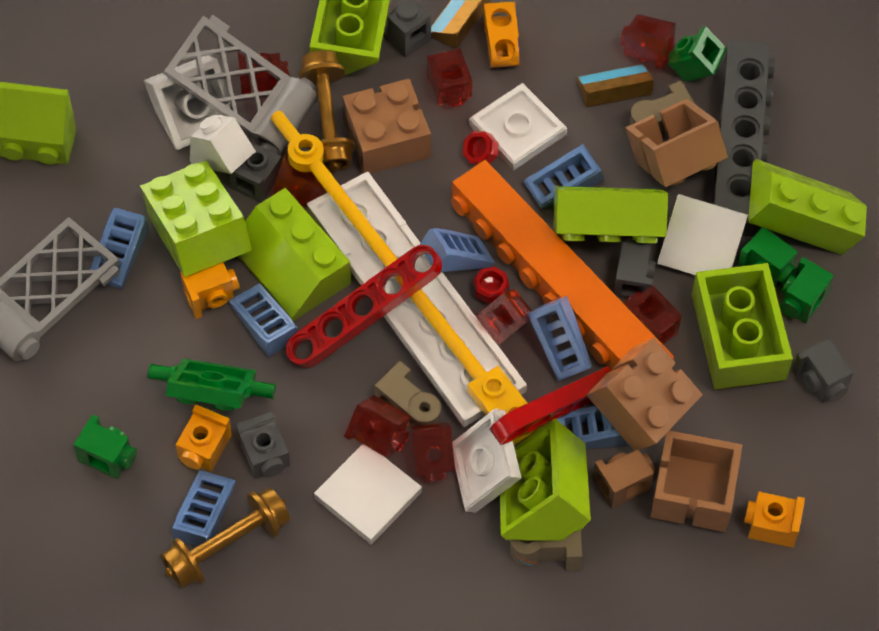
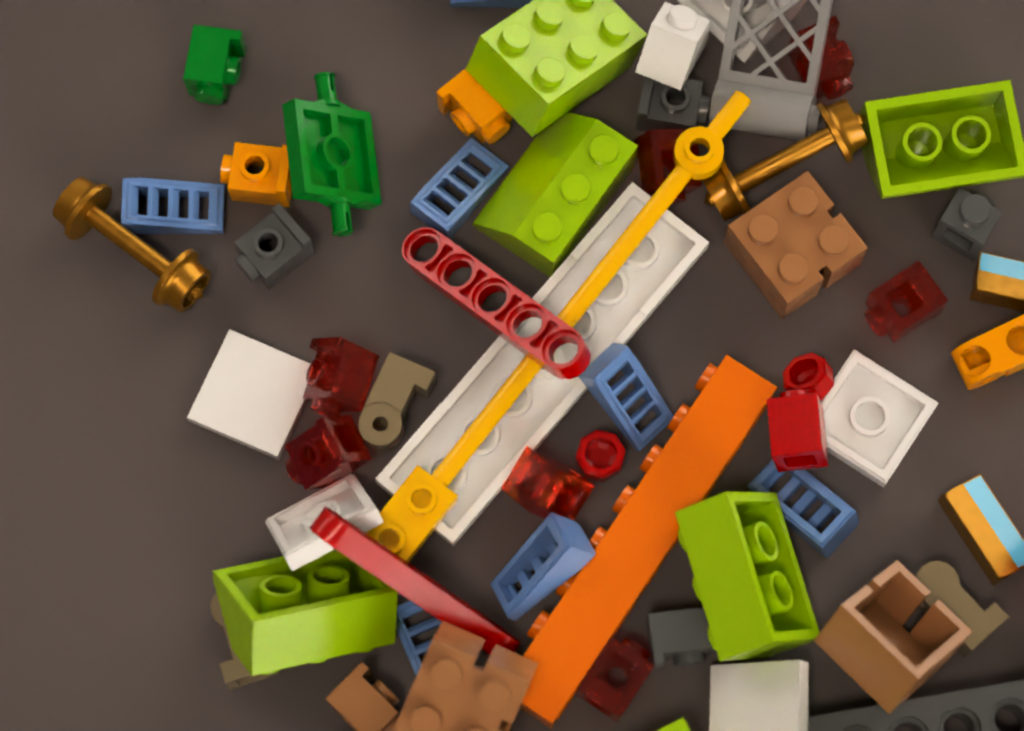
camera: 75 degrees right, 15 degrees up
(518, 158) = (797, 431): none -> red brick

